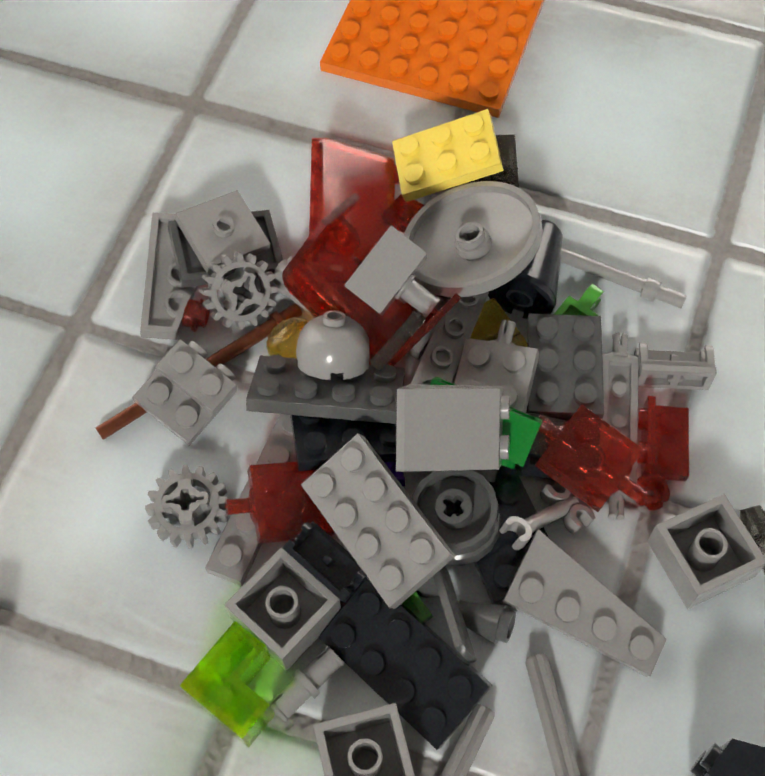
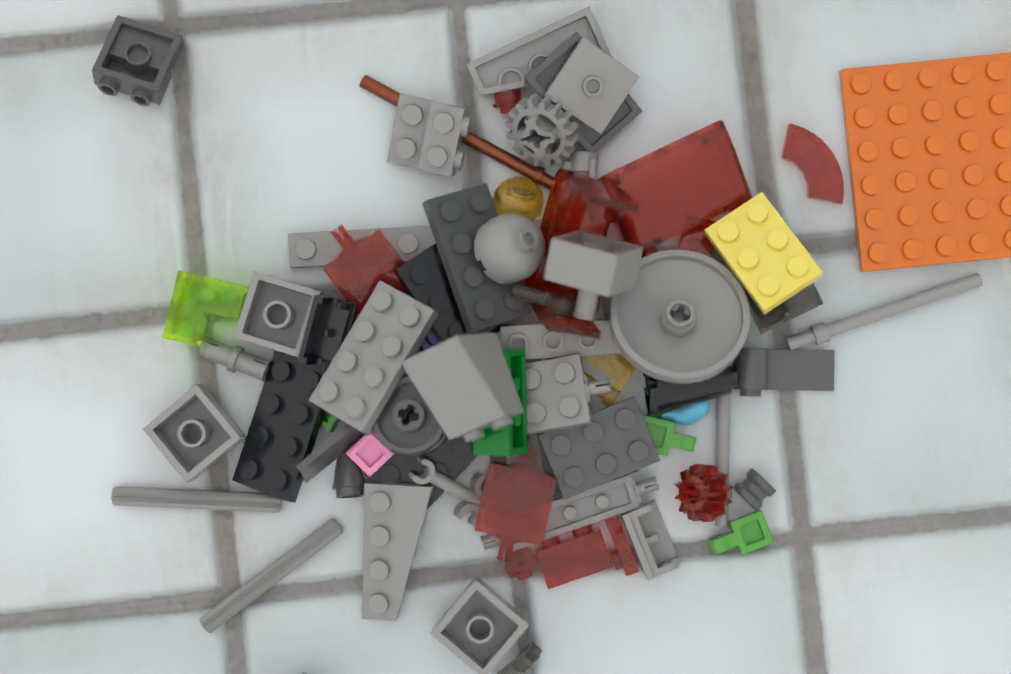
camera: 60 degrees right, 25 degrees up
(172, 501) = (316, 199): light grey gear -> none
(388, 110) = (816, 163): none -> clear red tile
(472, 581) = (369, 453): none -> bright pink tile
(539, 157) = (821, 332): none -> light grey bar
(563, 194) = (784, 370): none -> dark grey door
(566, 286) = (688, 414): none -> medium azure arm
(658, 306) = (703, 493): none -> clear red gear
(660, 259) = (754, 489): none -> dark grey wheel
(673, 391) = (622, 554): none -> clear red plate
(702, 283) = (746, 533): none -> bright green plate

